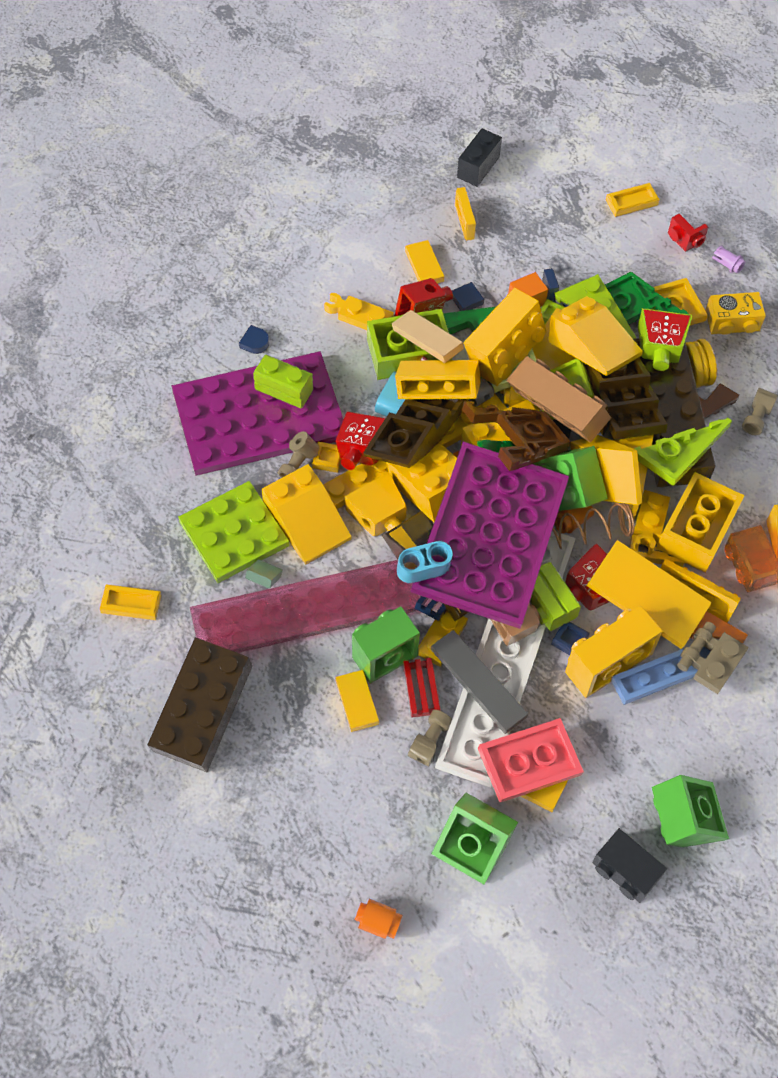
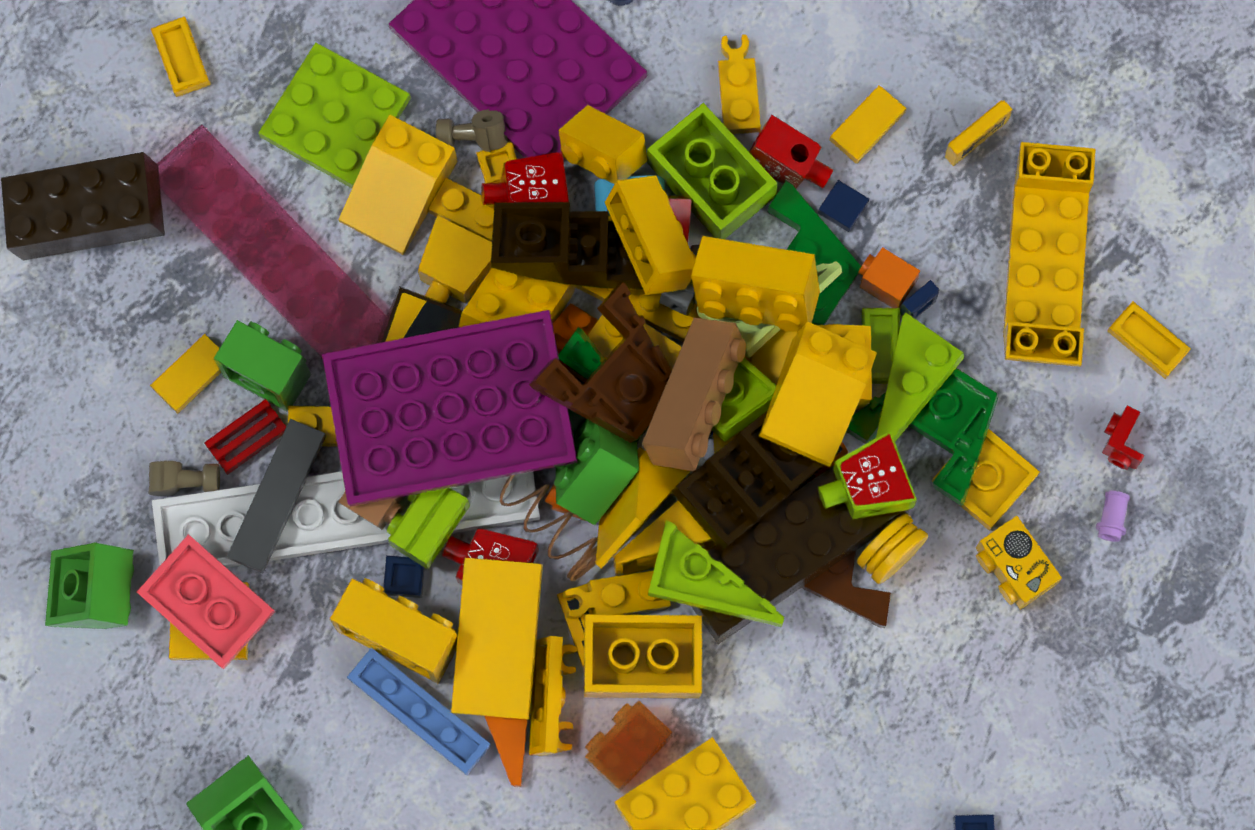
camera: 65 degrees right, 15 degrees up
(263, 574) = (292, 181): sand green tile -> none
(283, 381) = (556, 53): lime brick -> none
(357, 387) = (602, 145): none -> yellow brick
(426, 566) = (351, 350): medium azure beam -> none
(427, 336) = (707, 187): tan tile -> none
(479, 157) = (1088, 101): black brick -> none
(556, 218) = (1047, 254): none -> yellow slope
(628, 866) = (141, 773): black brick -> none
(720, 662) = (454, 765): dark tan plate -> none
(762, 404) = (888, 663): dark tan leg -> none

